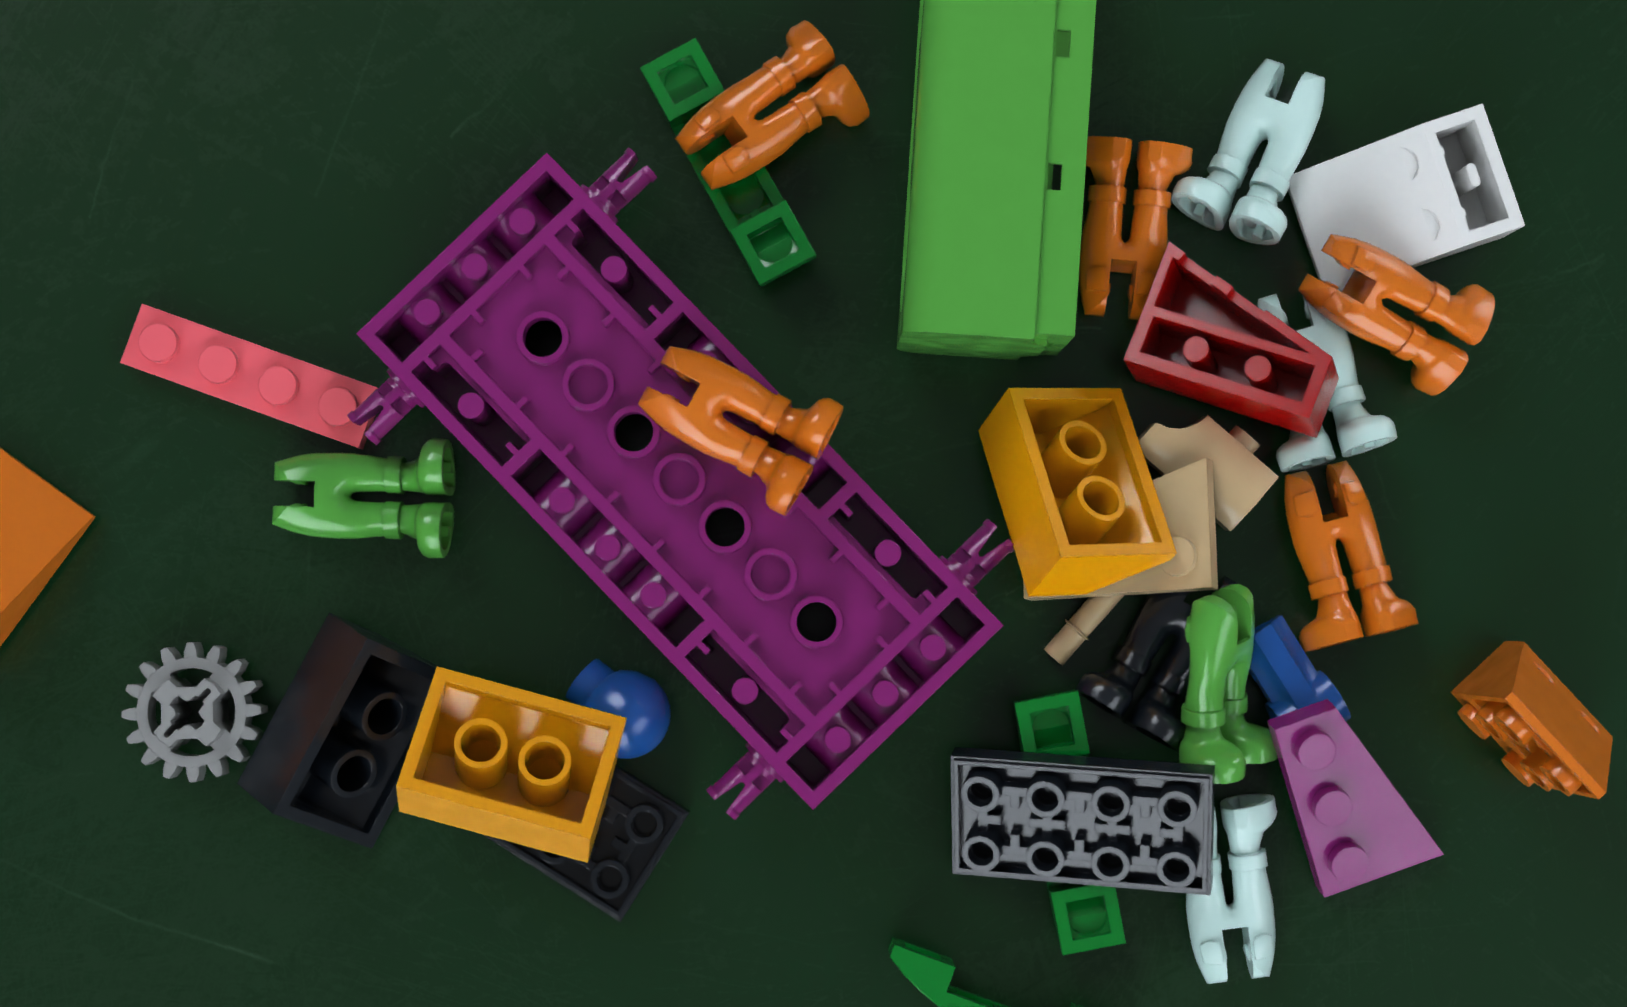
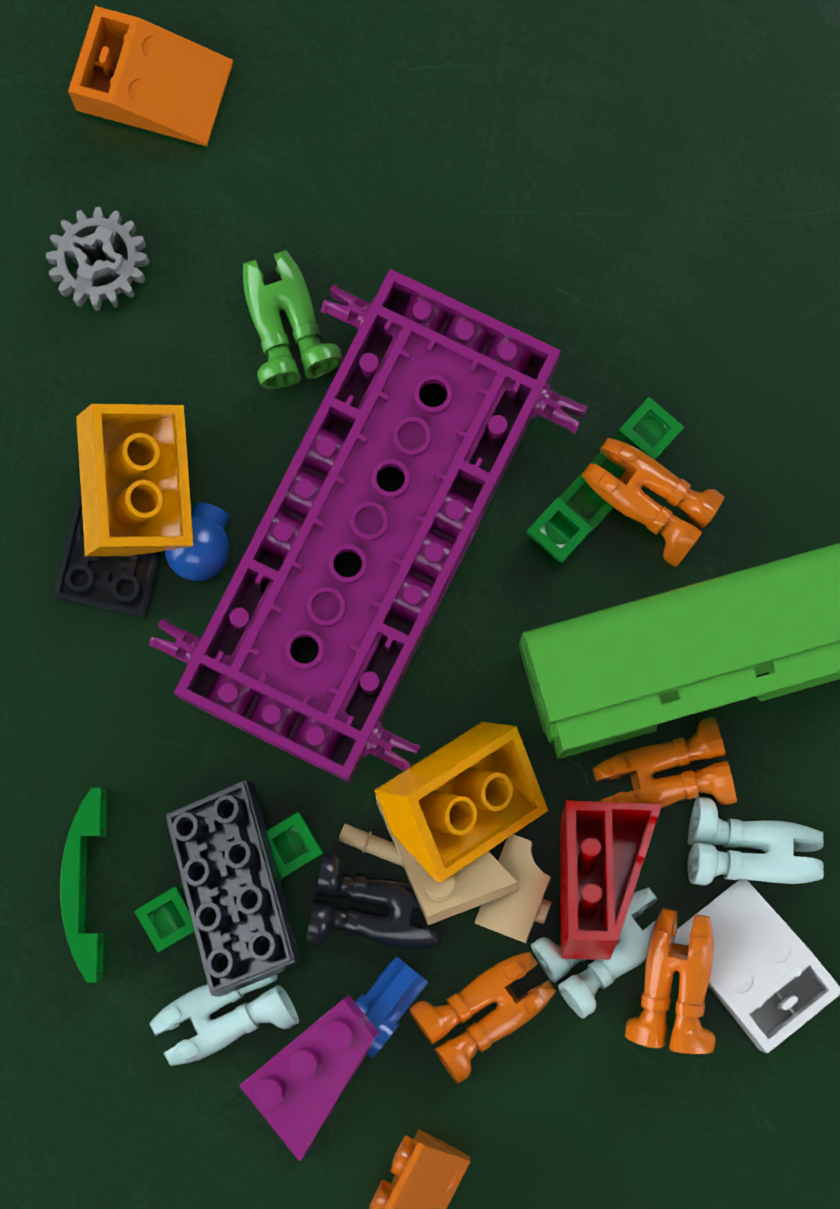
camera: 75 degrees right, 5 degrees down
(247, 375) = (339, 210): coral plate -> none
(341, 733) = (116, 359): black slope -> none
(731, 390) = (408, 524): orange piece -> none
(1215, 701) = (353, 952): bright green piece -> none

